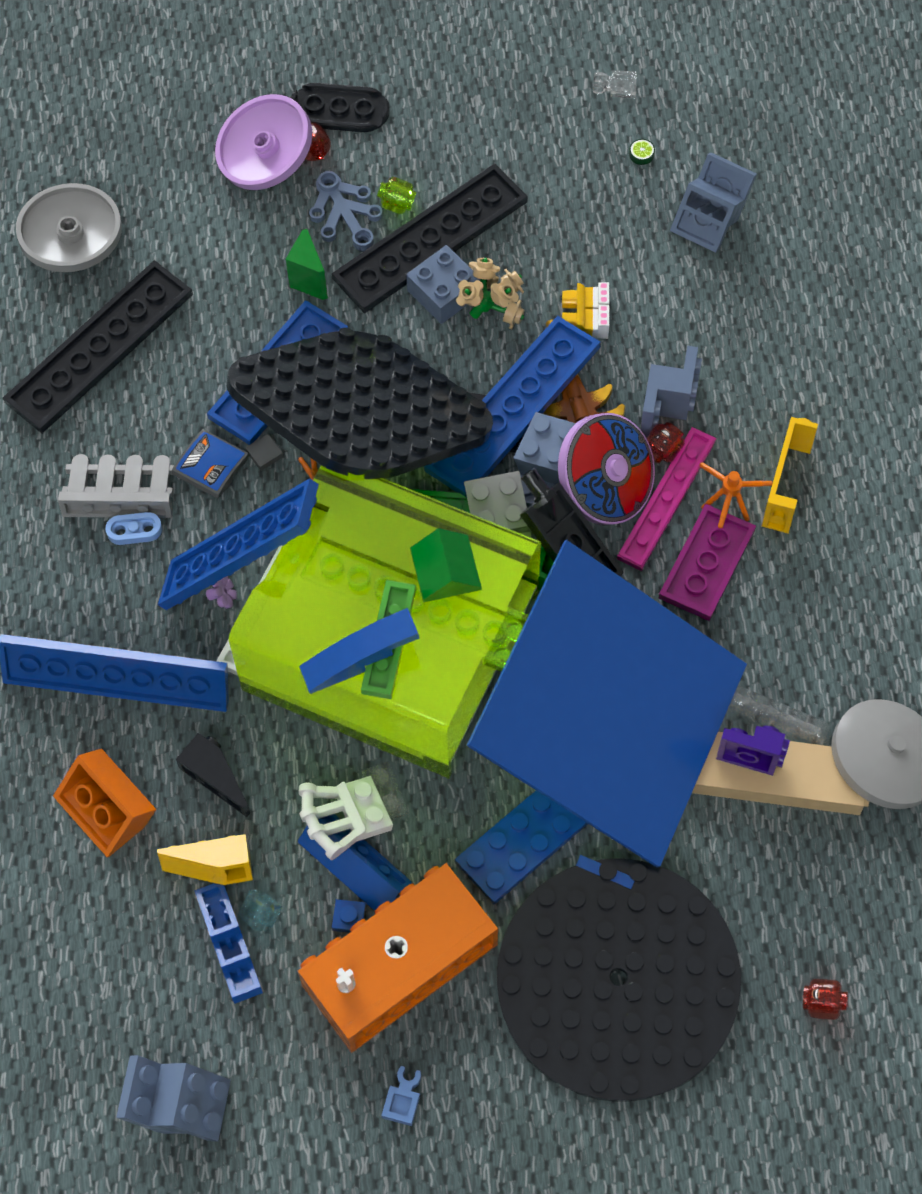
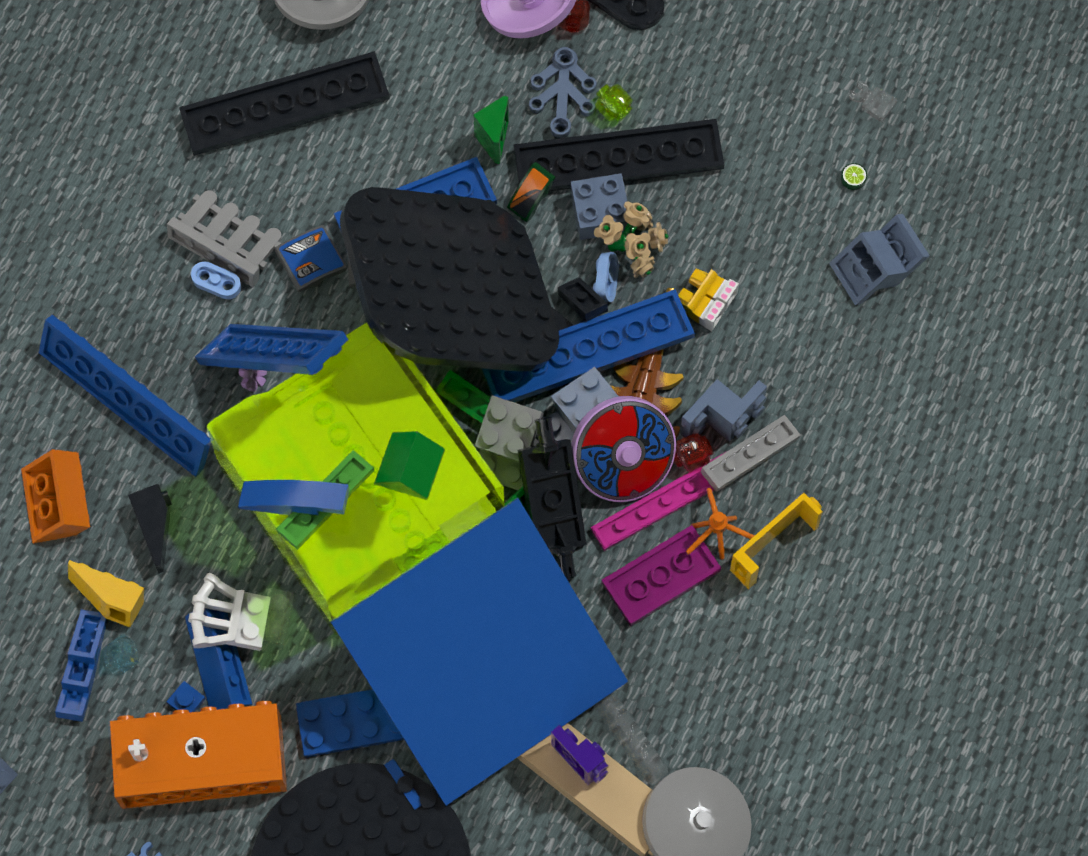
camera: 30 degrees right, 5 degrees up
(375, 302) = (531, 191): none -> slope
(480, 367) = (582, 299): none -> black plate
(483, 332) = (607, 276): none -> light blue plate
(714, 417) = (750, 453): none -> light grey plate

